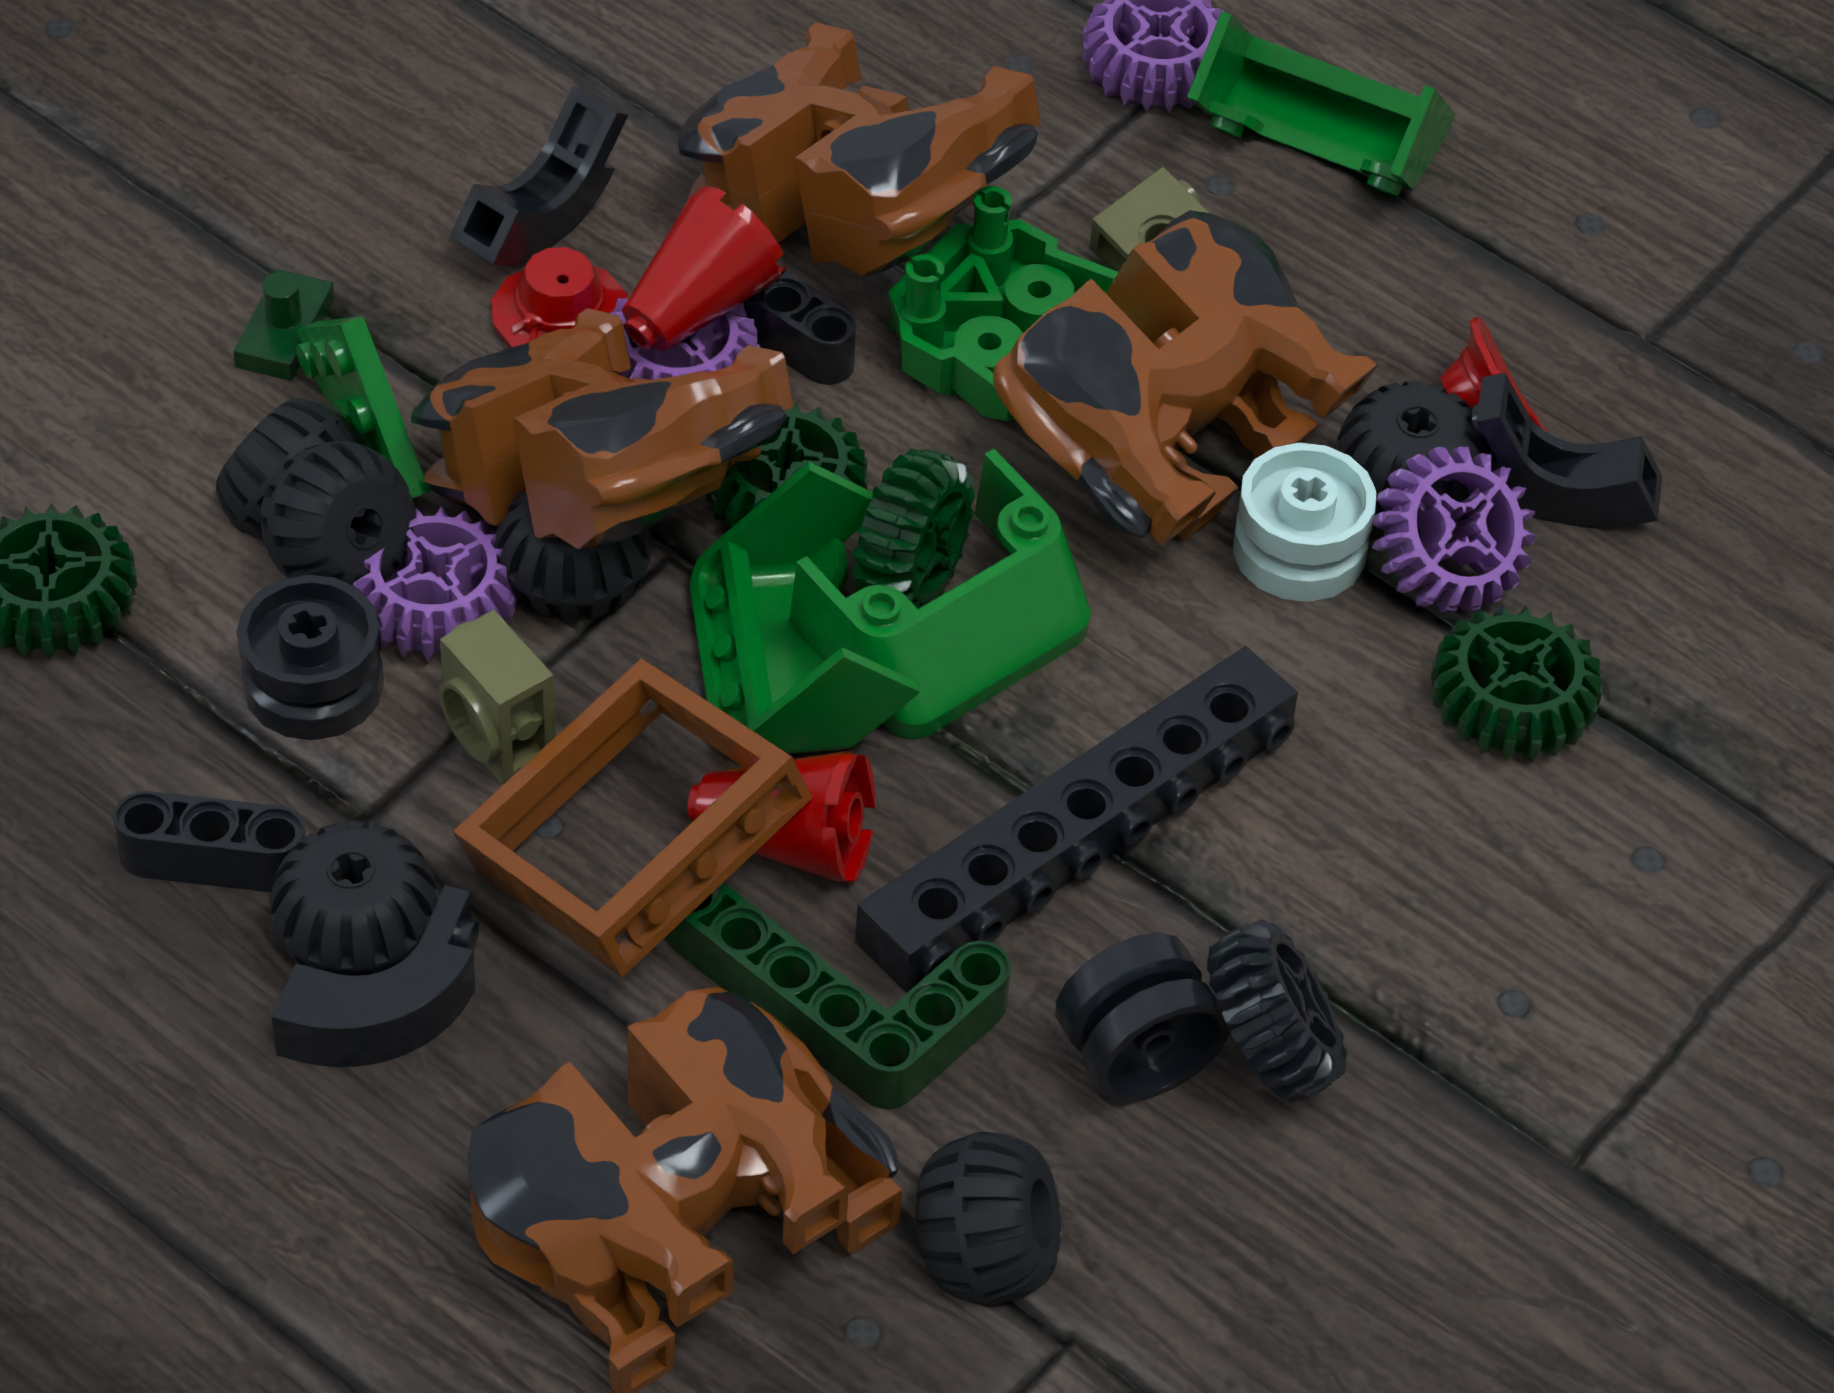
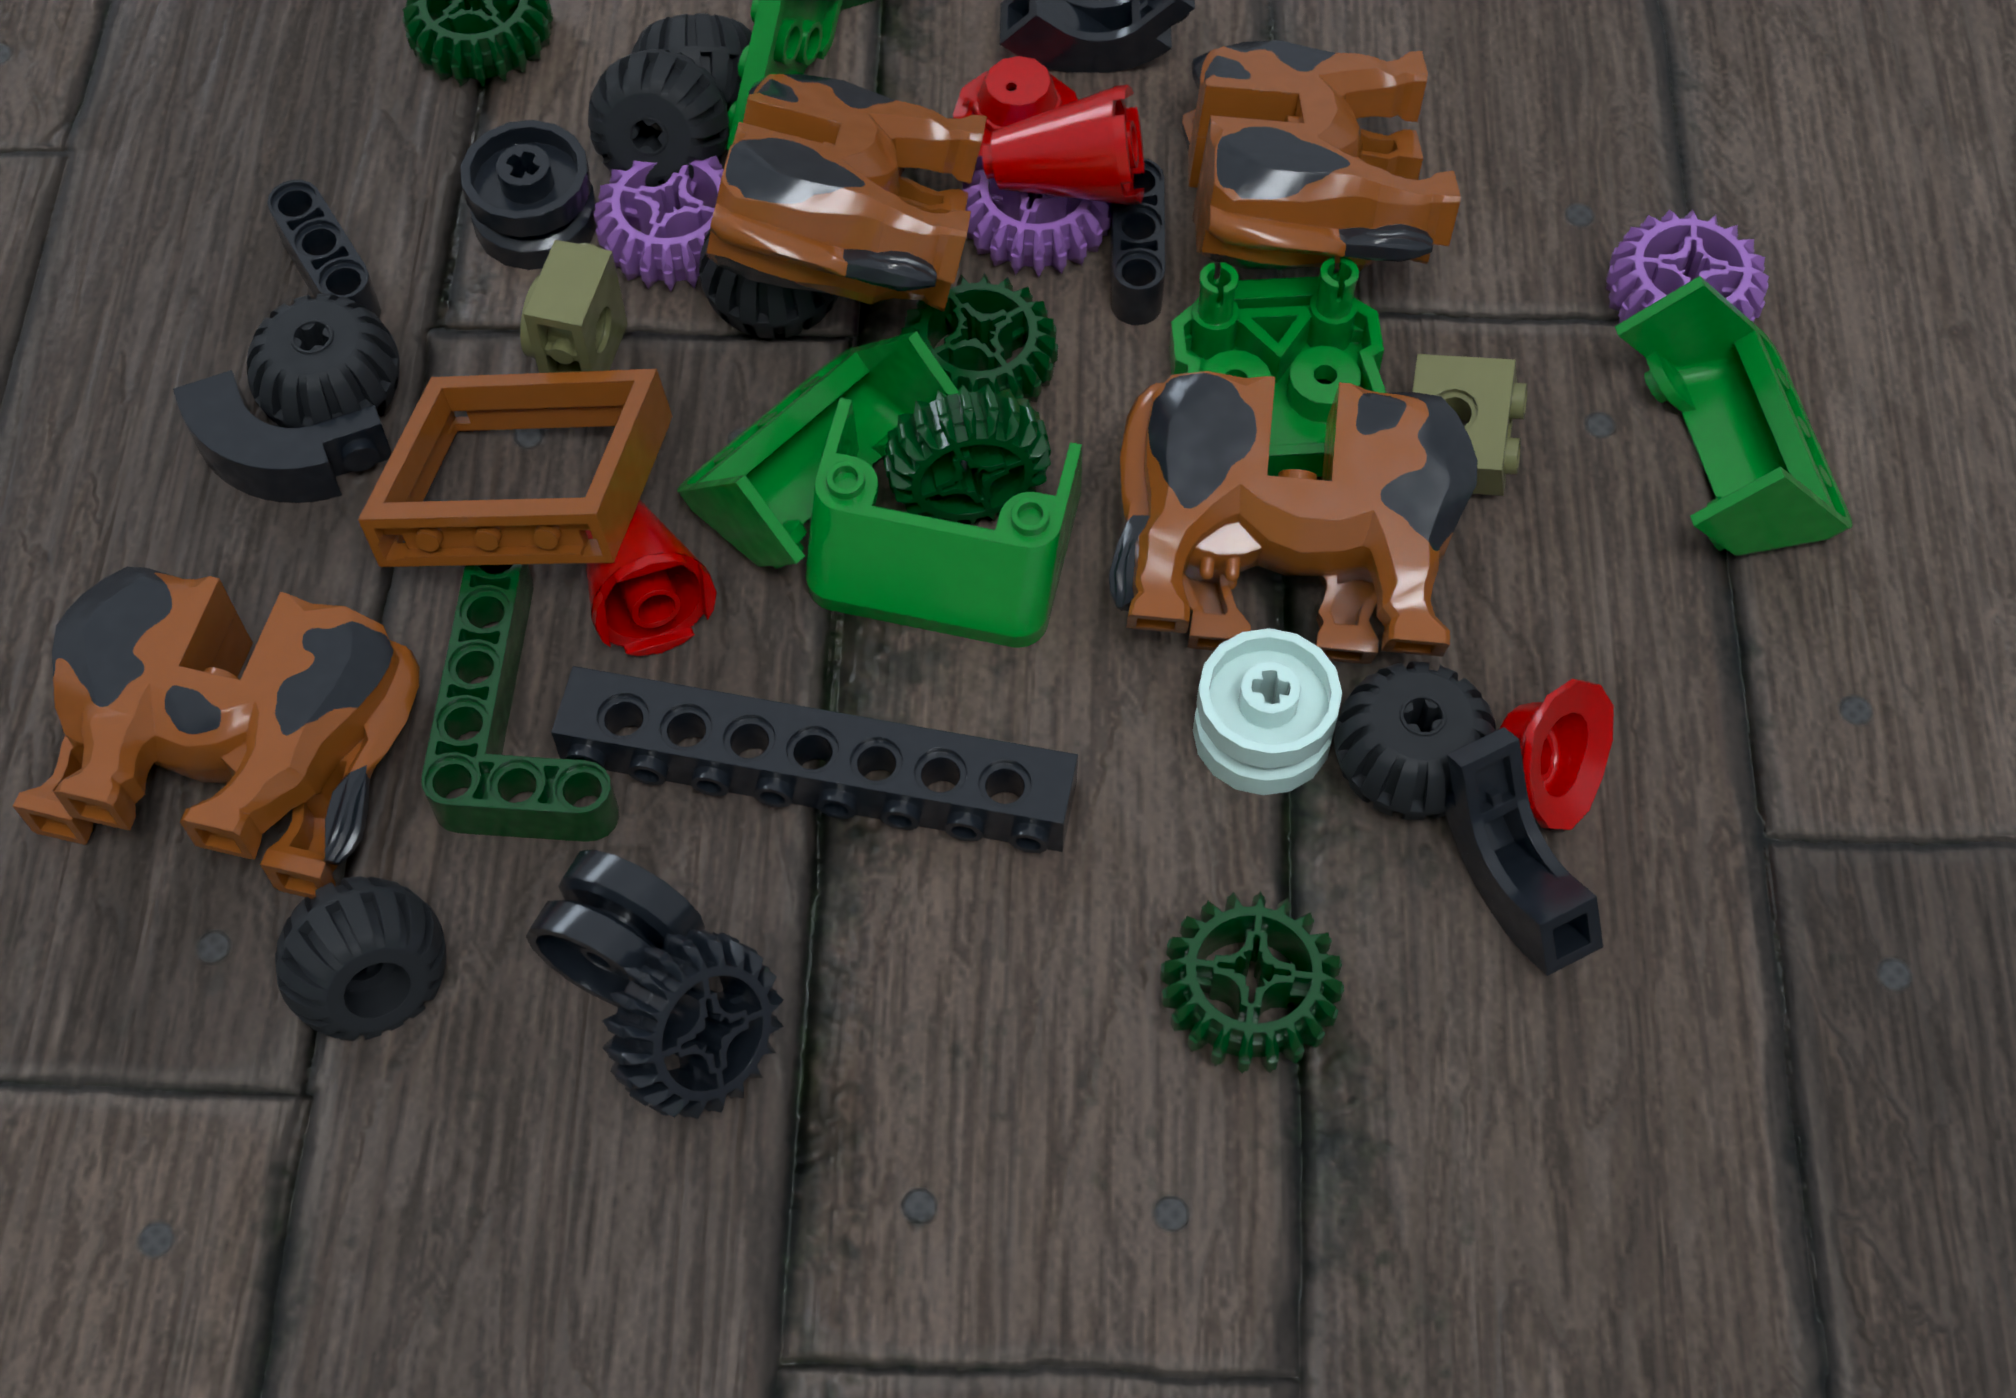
camera: 55 degrees right, 10 degrees up
(1490, 554) = (1356, 856): medium lavender gear -> none

